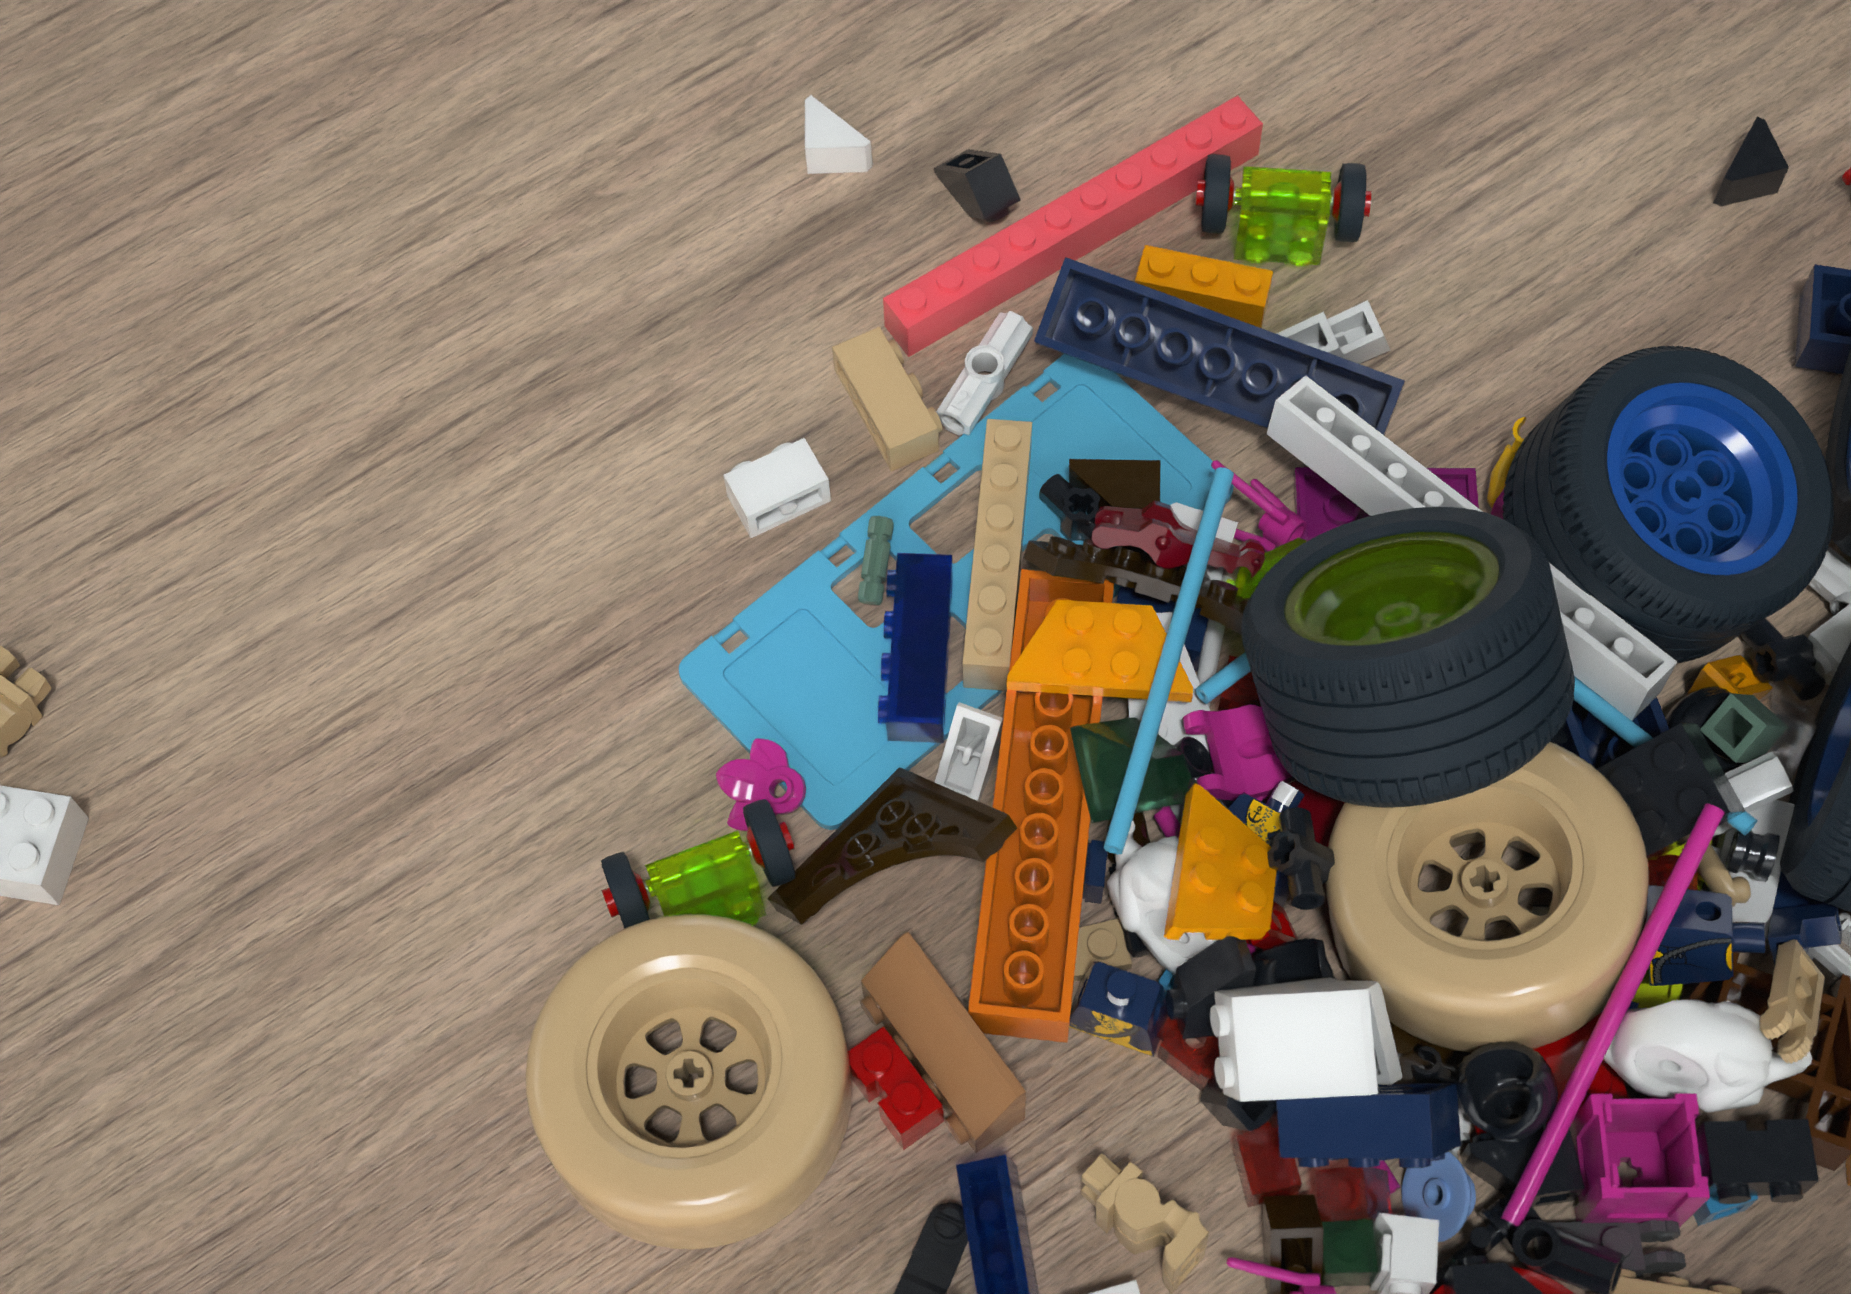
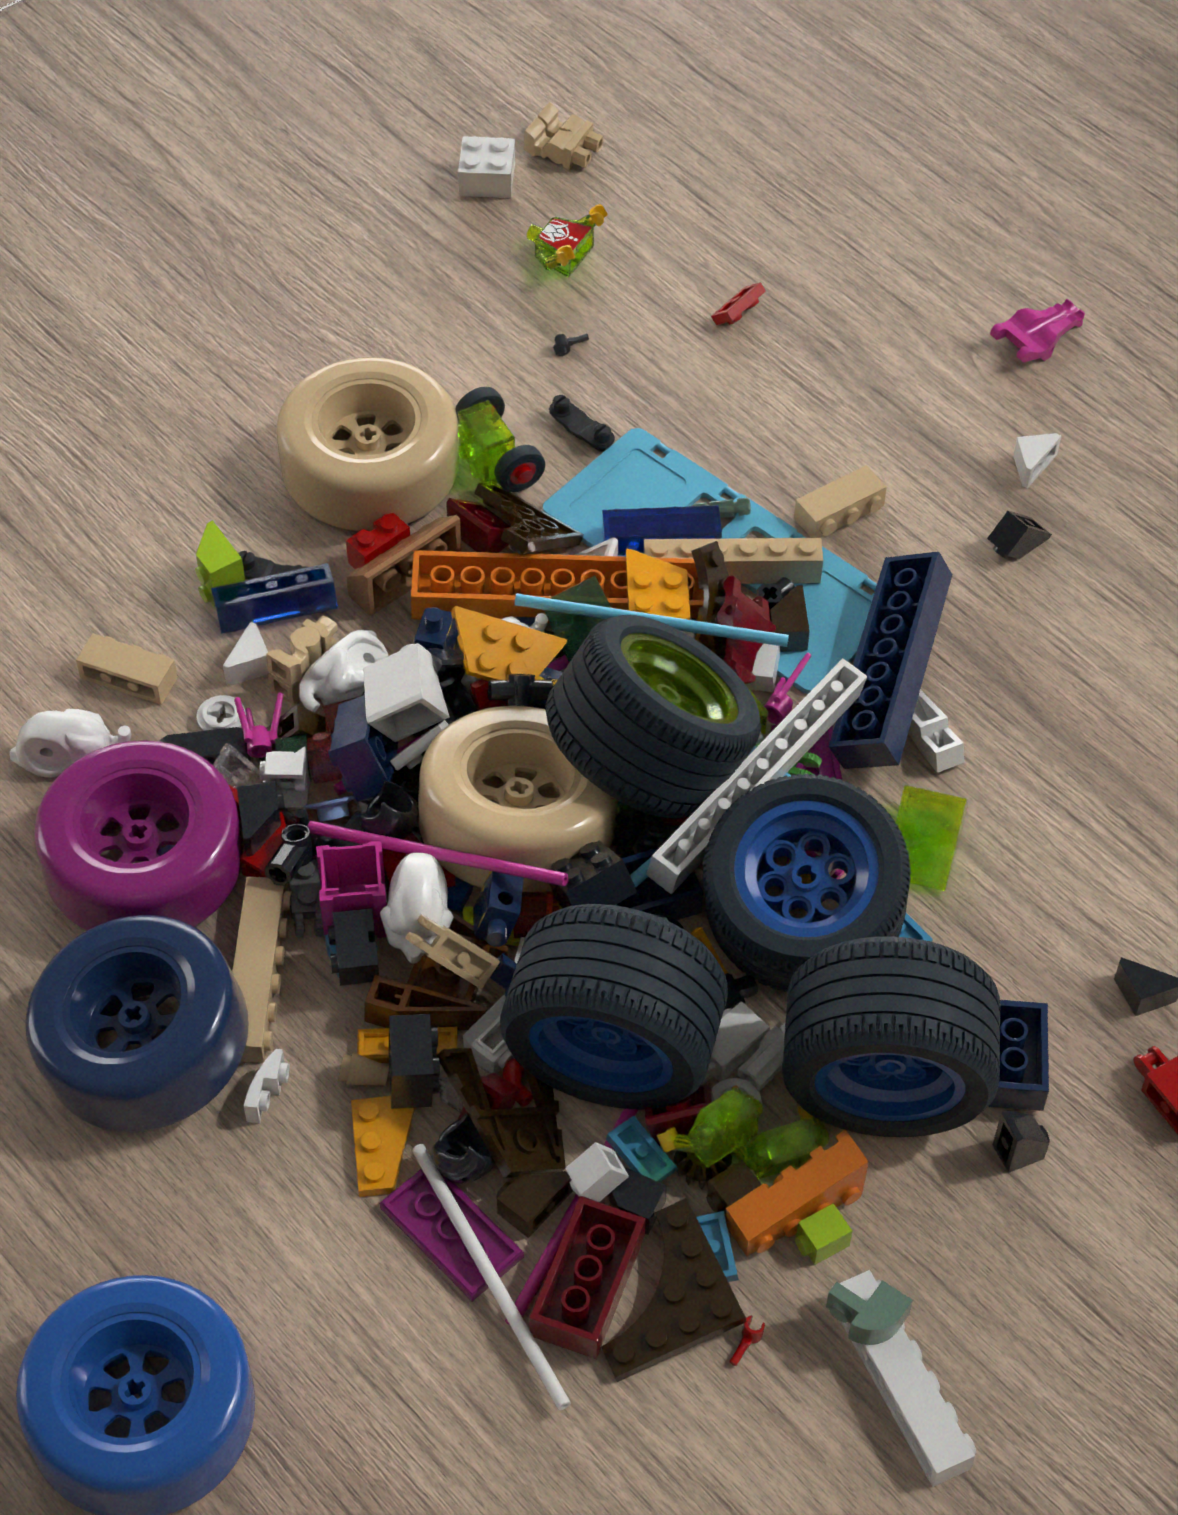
camera: 80 degrees right, 10 degrees down
(239, 731) = (566, 242): none -> torso
(440, 486) = (743, 300): none -> red plate
(473, 763) = (563, 343): none -> black hand
(577, 95) = (1038, 331): none -> dark pink animal
(662, 748) = (580, 425): none -> black piece
(756, 780) = (563, 470): dark pink plate -> none
(777, 487) = (765, 456): white brick -> none
(866, 922) = (478, 525): none -> dark red slope
(974, 391) = (866, 548): white piece -> none
(1068, 227) = (1000, 590): coral brick -> none
(1179, 1148) = (339, 670): none -> white piece
(1208, 282) = (958, 659): light orange brick -> none
(1283, 210) = (1025, 694): clear neon green brick -> none
(1504, 370) = (932, 831): none -> clear neon green slope

